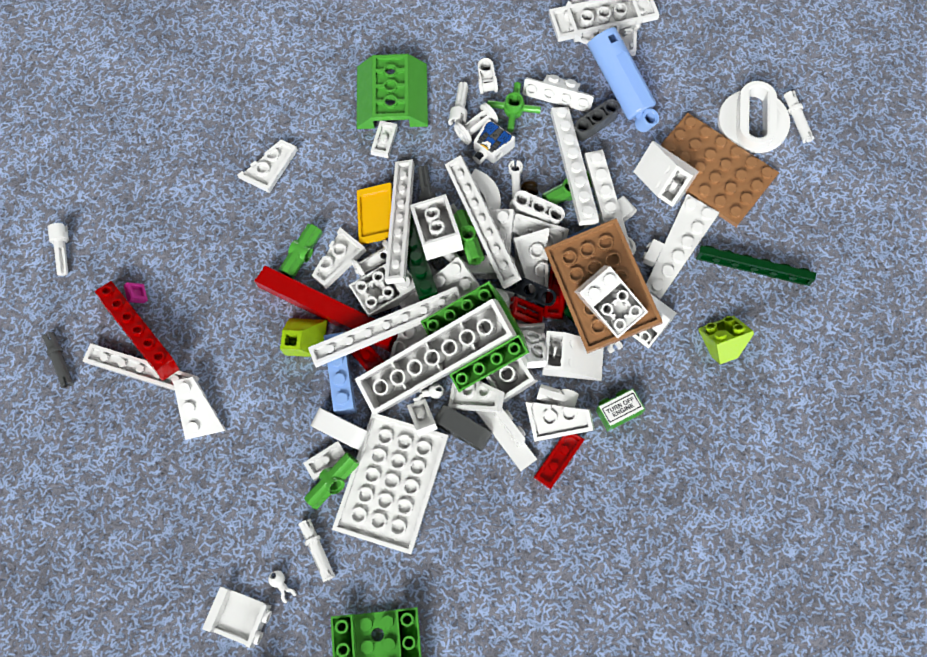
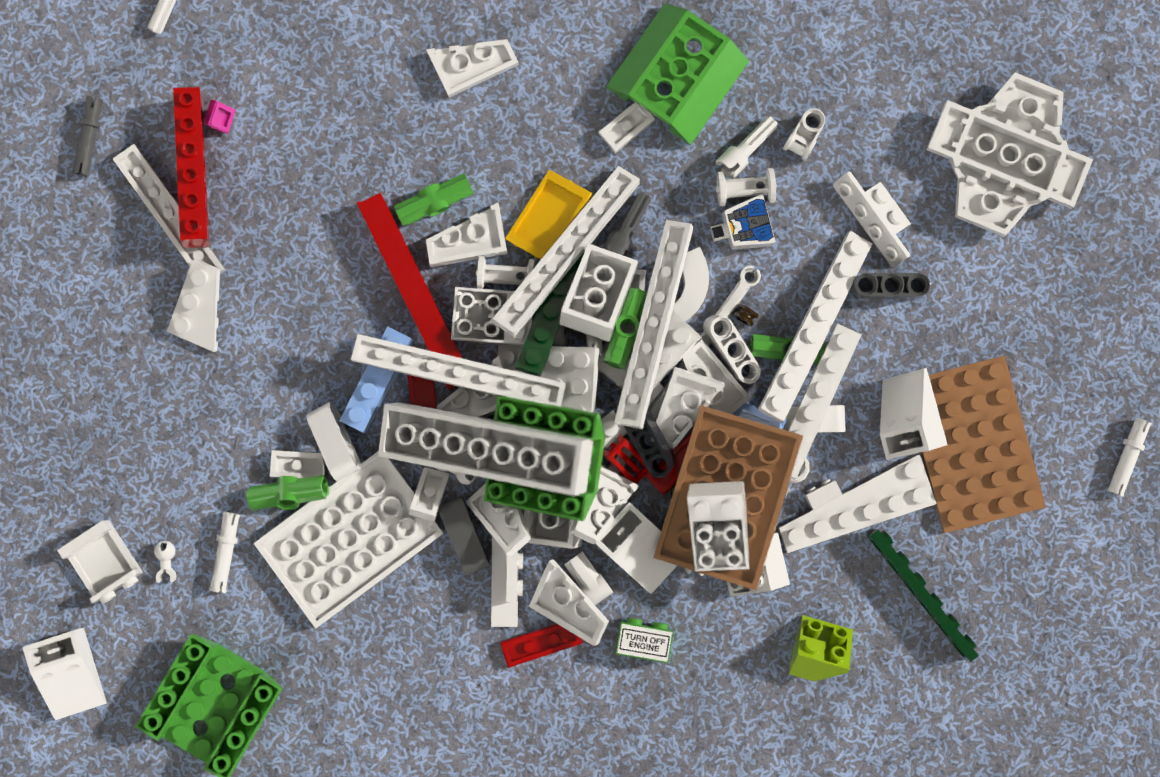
camera: 30 degrees right, 15 degrees up
(300, 334) = (368, 306): lime slope -> none
(516, 111) = (800, 204): bright green bar -> none
(624, 78) = (959, 263): light blue piece -> none
(734, 118) = (1055, 400): white piece -> none

